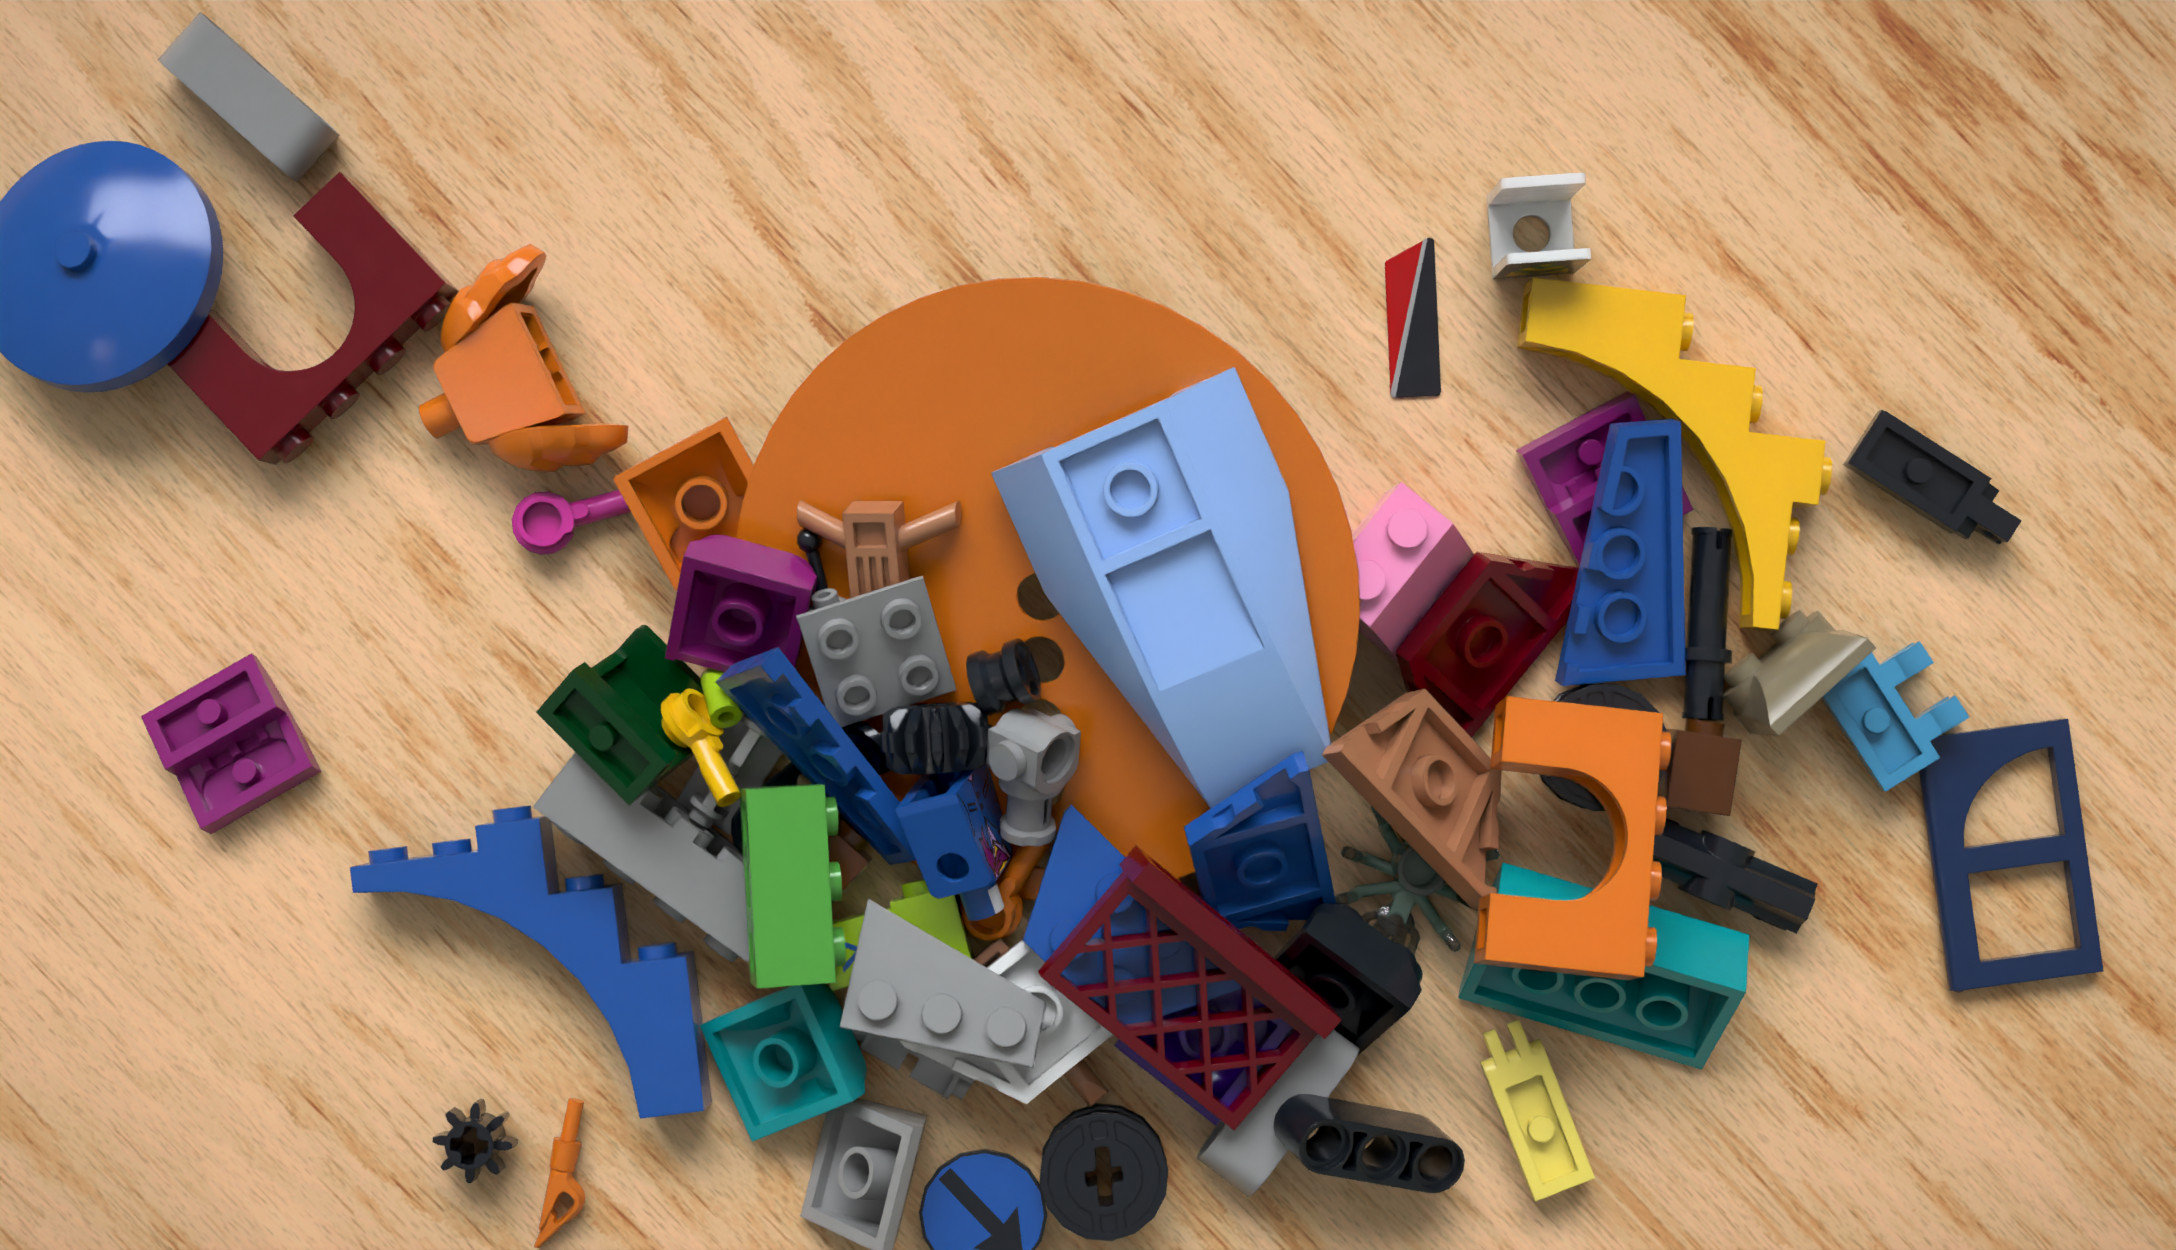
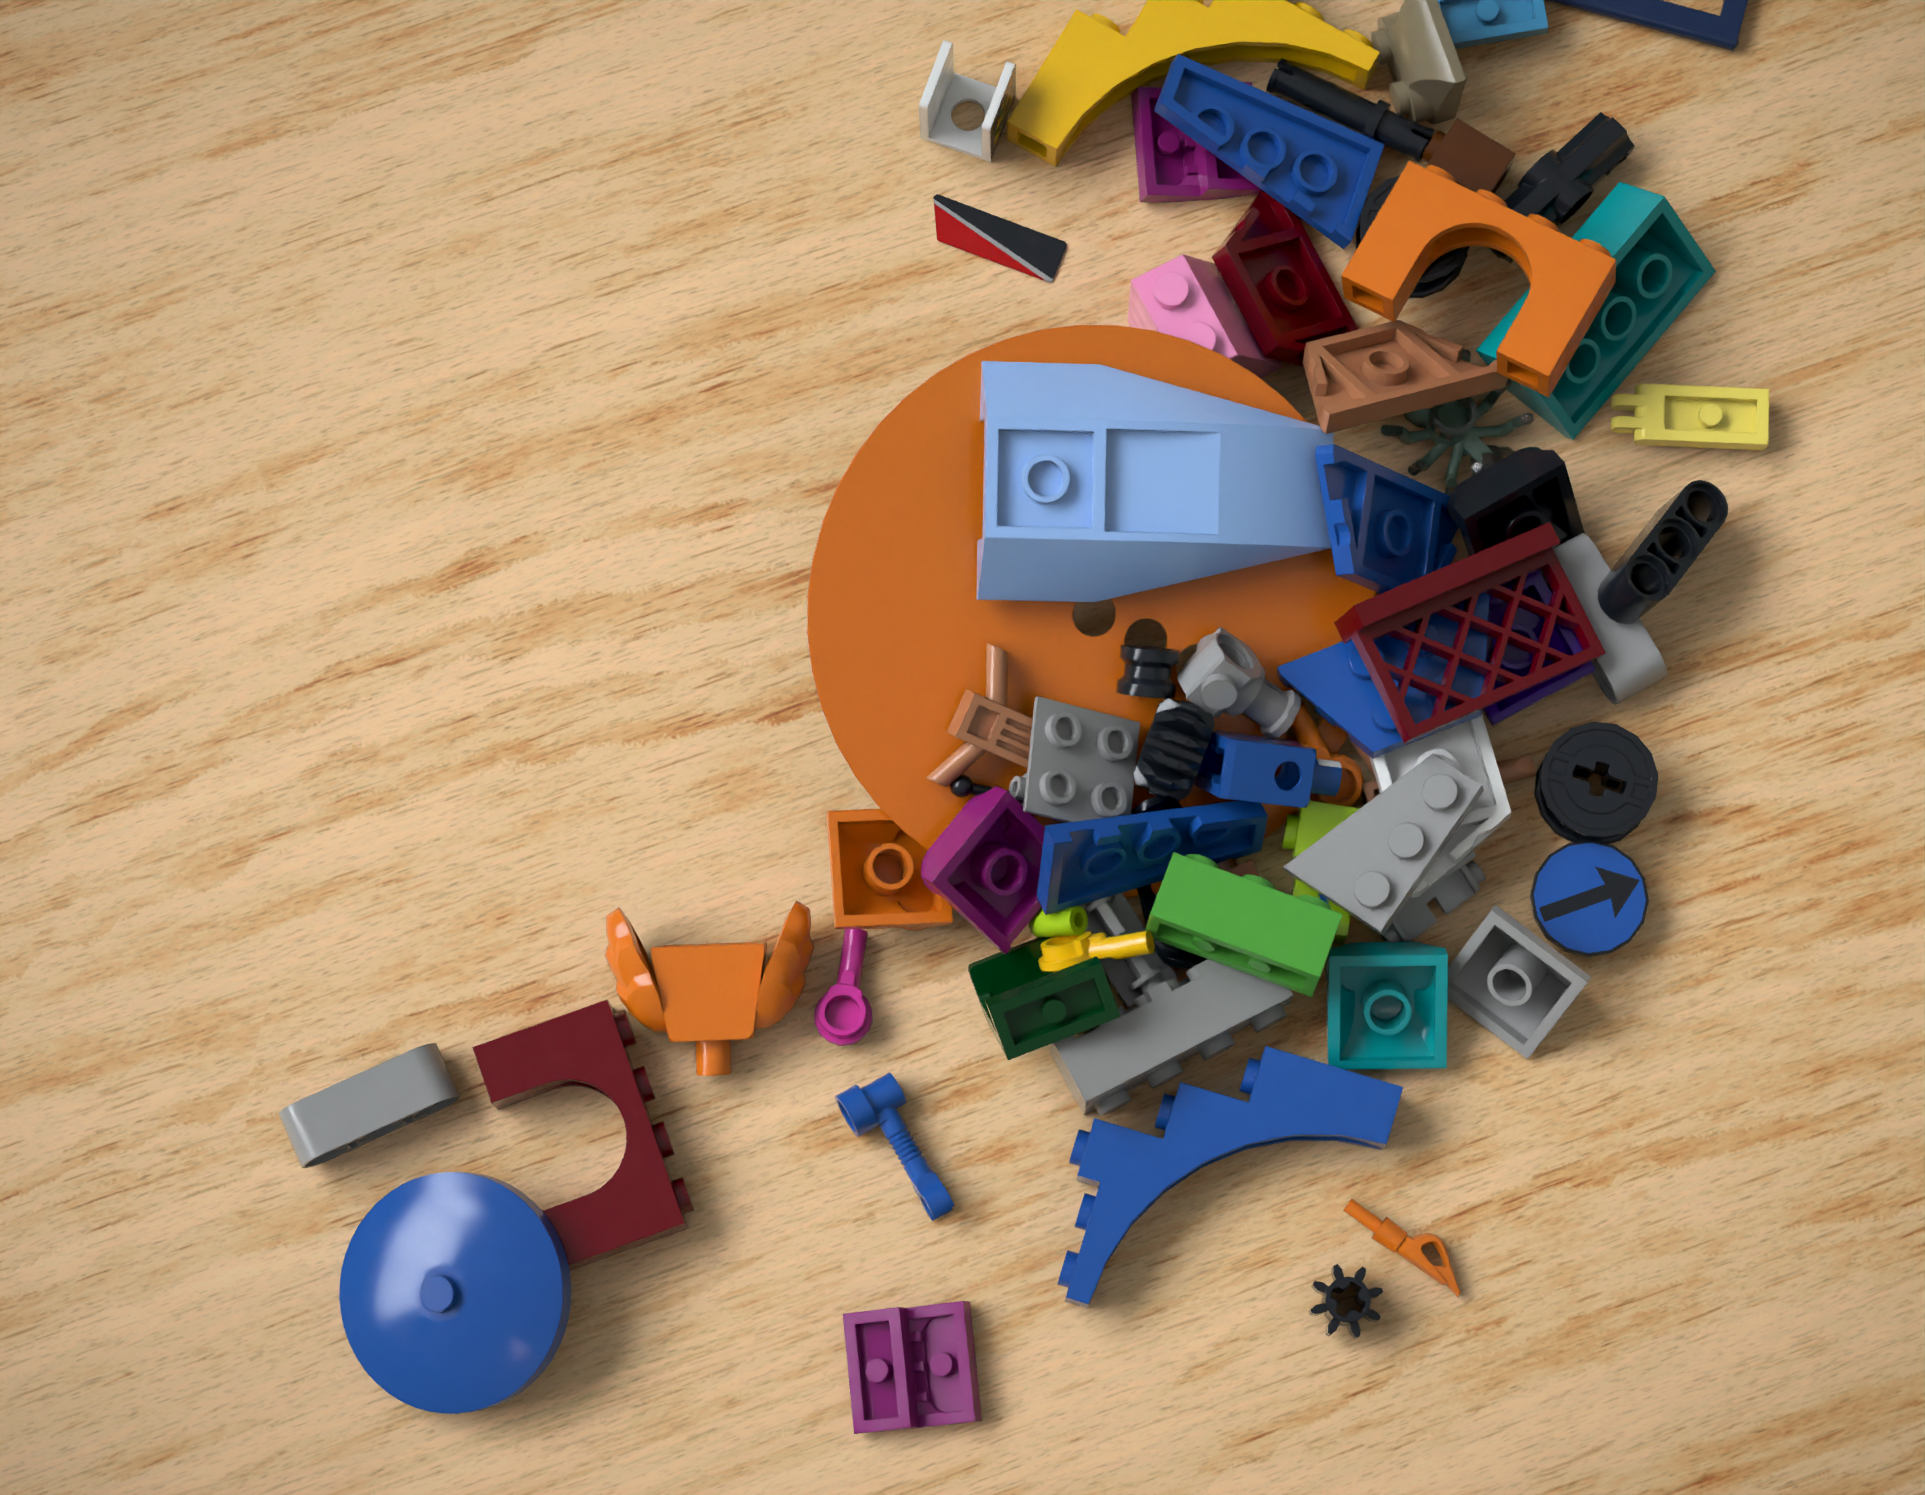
camera: 65 degrees left, 10 degrees down
(468, 597) = (877, 1107): none -> blue brick

